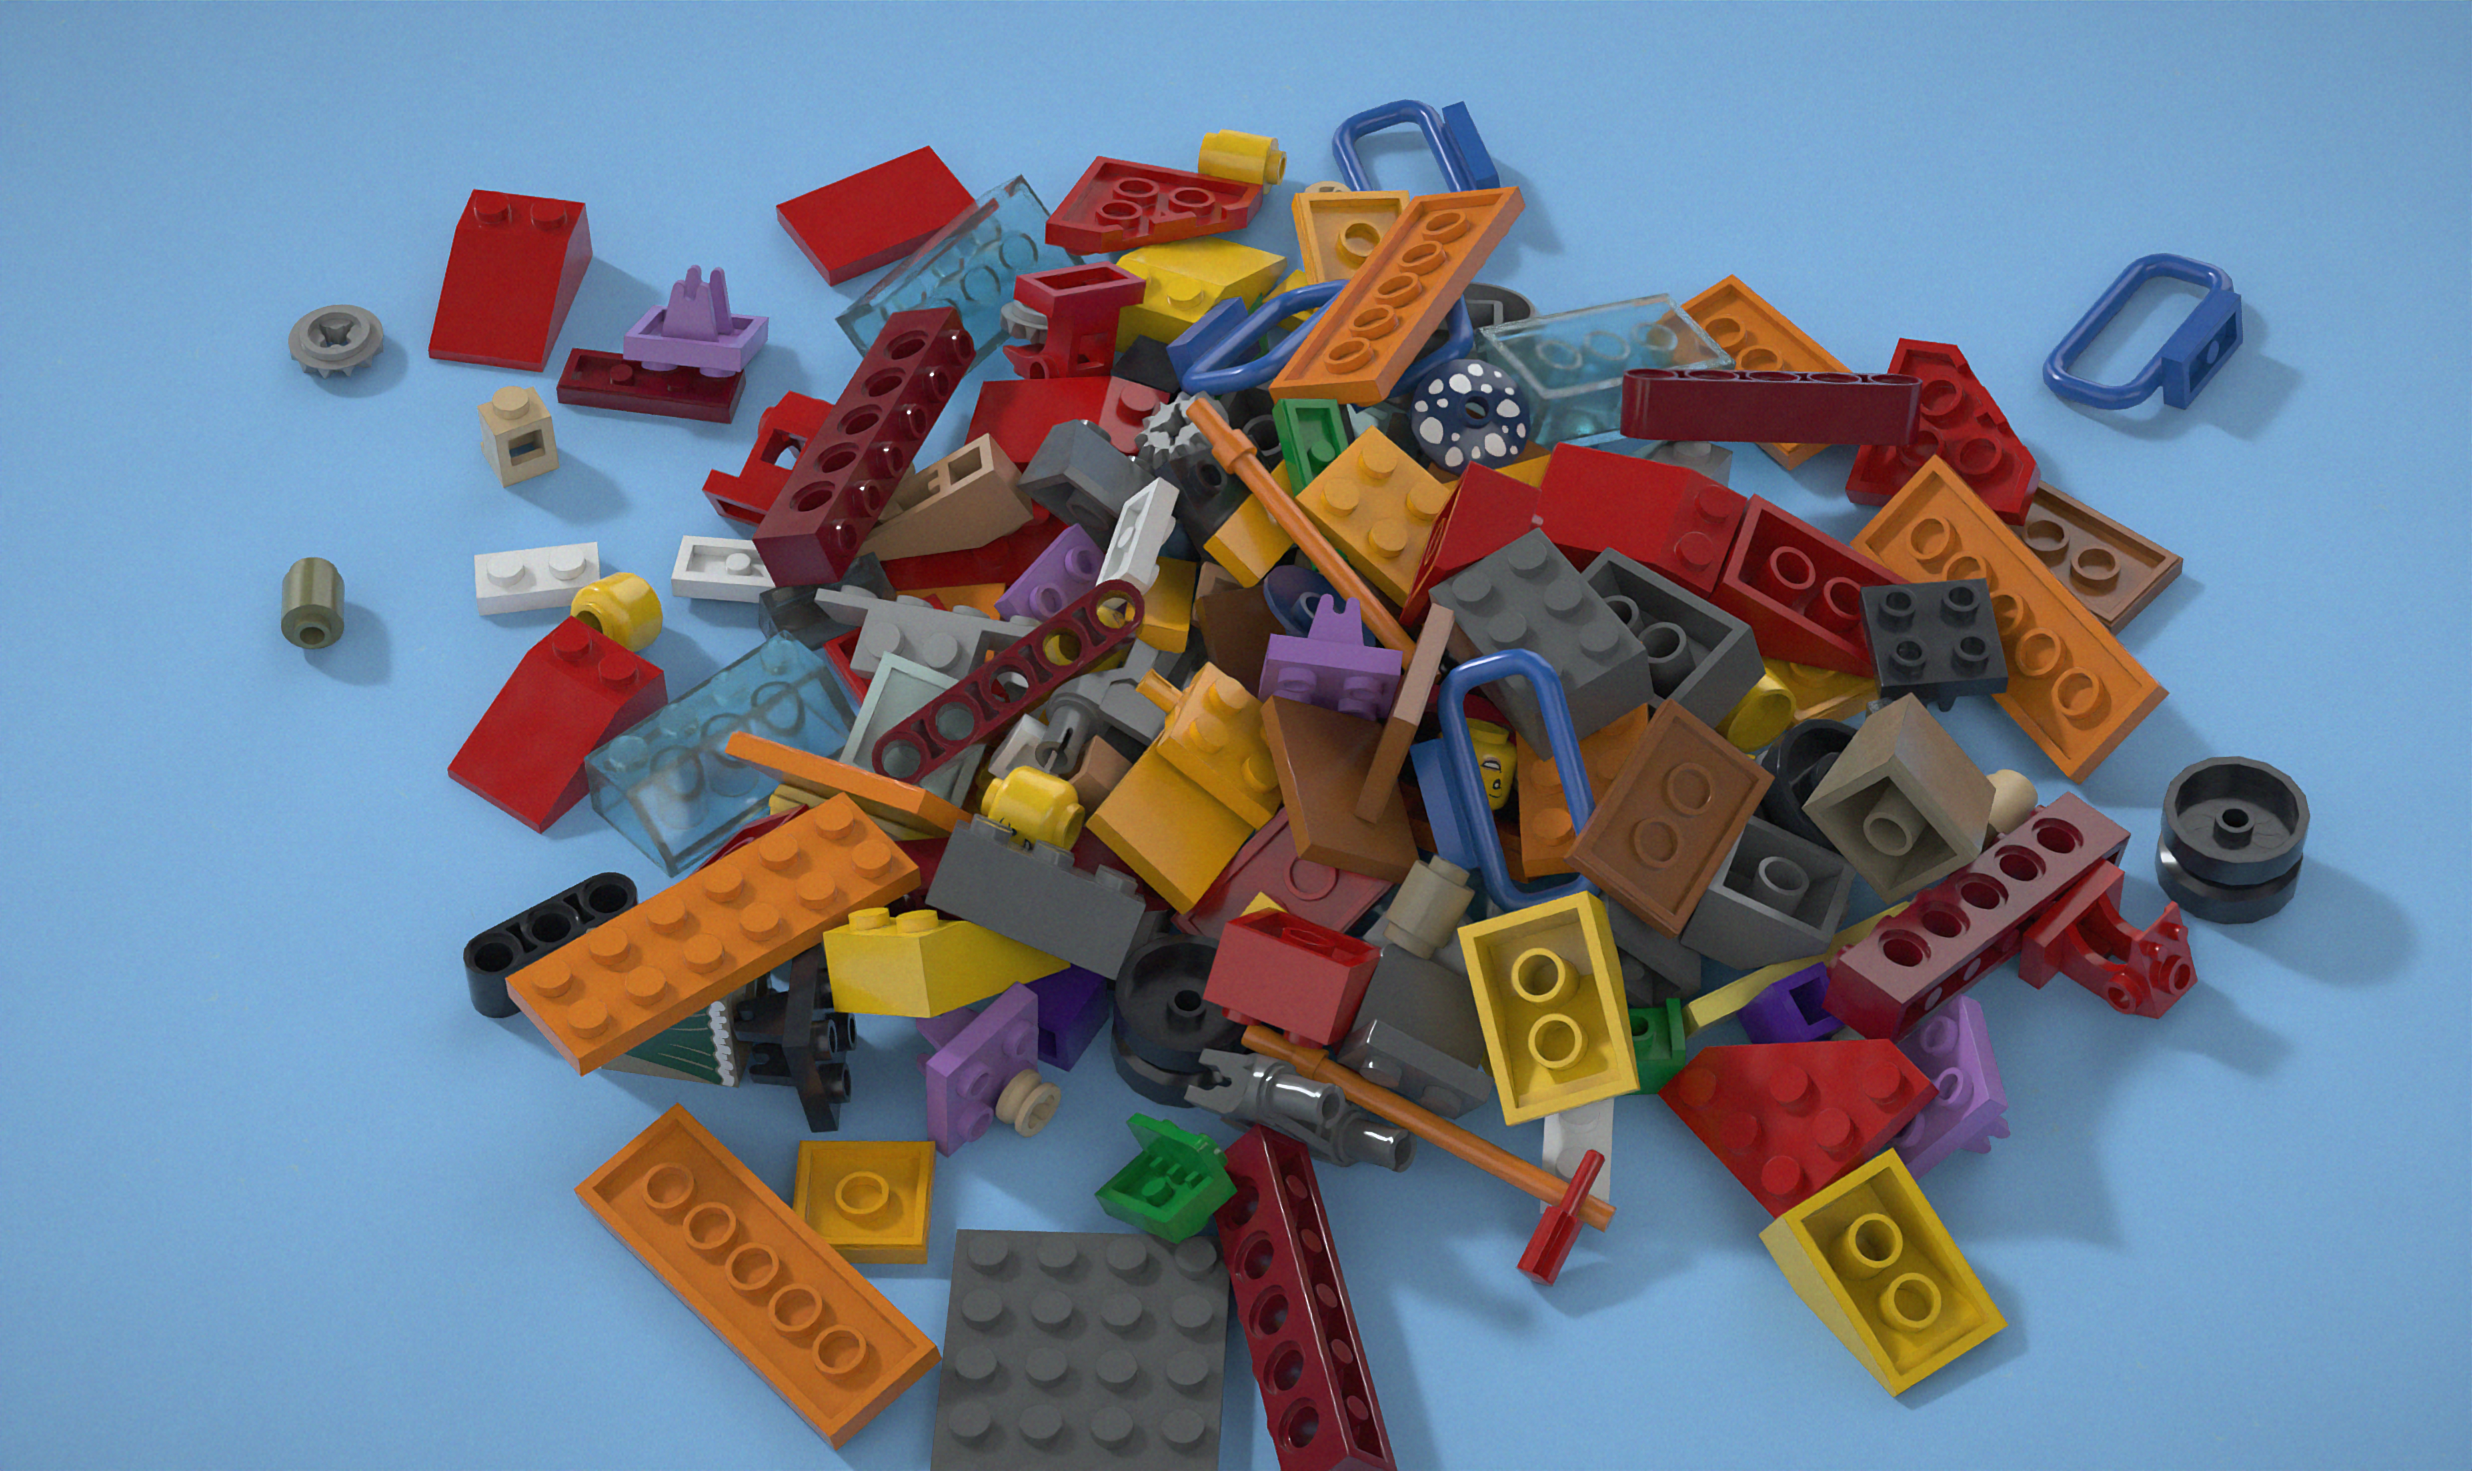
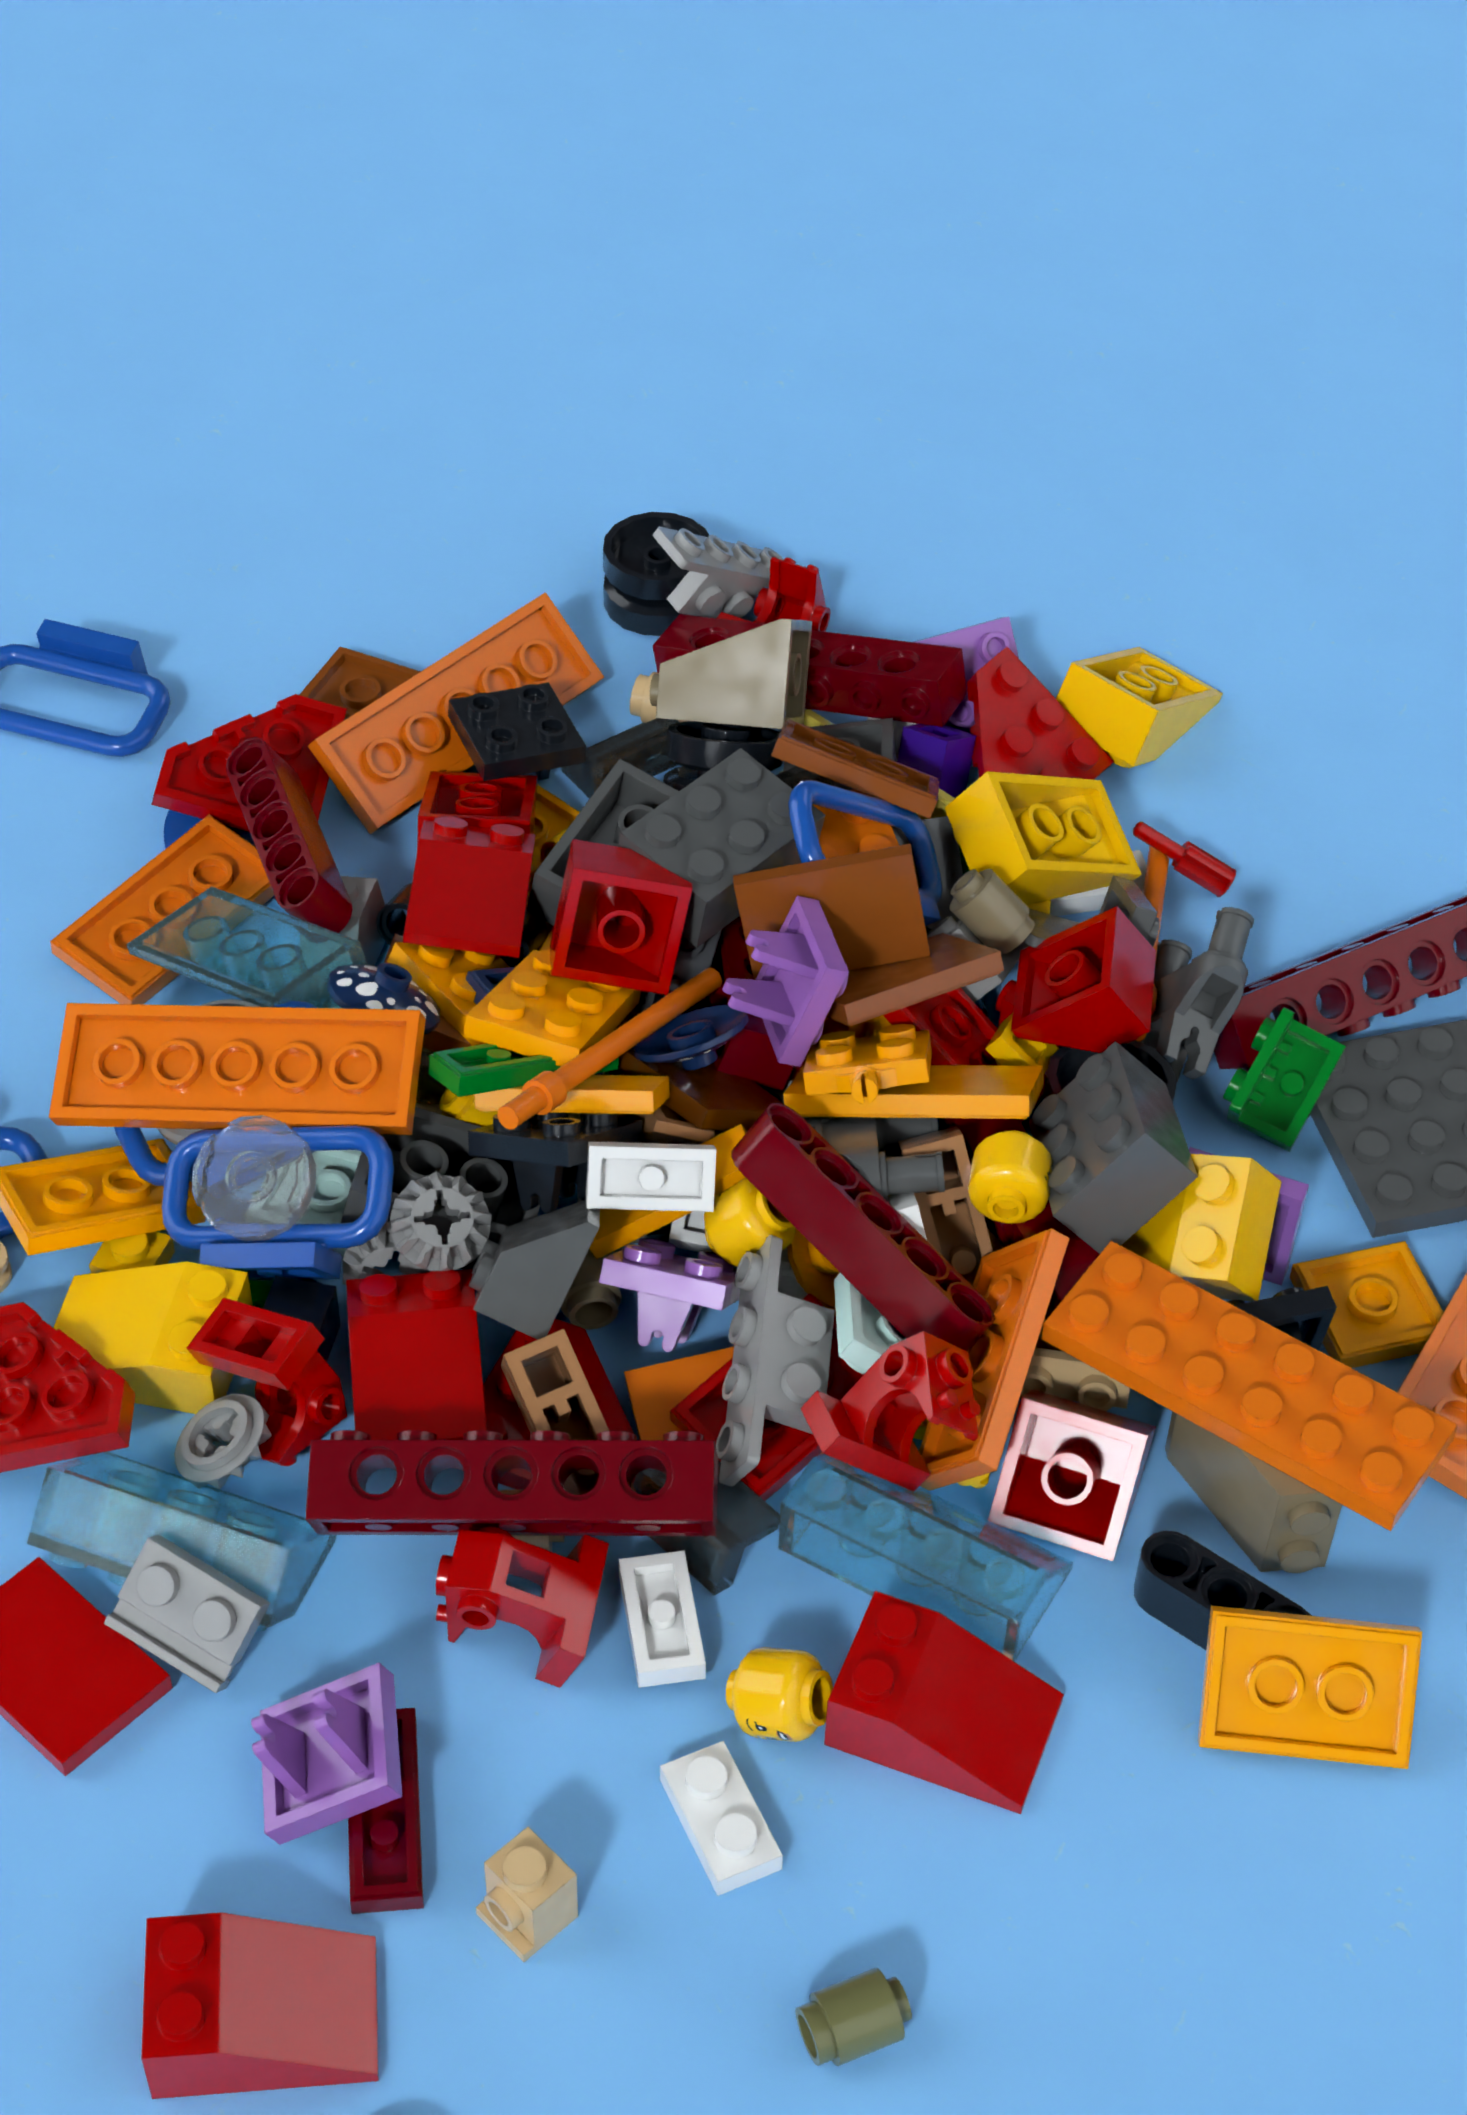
camera: 110 degrees left, 0 degrees up
(431, 959) = (1309, 1687): none -> light orange tile
(807, 692) = (887, 1405): none -> red tile
(857, 278) = (187, 1613): none -> light grey plate
(1288, 305) = (254, 1178): none -> clear tile
(2184, 864) = (720, 573): none -> light grey bracket

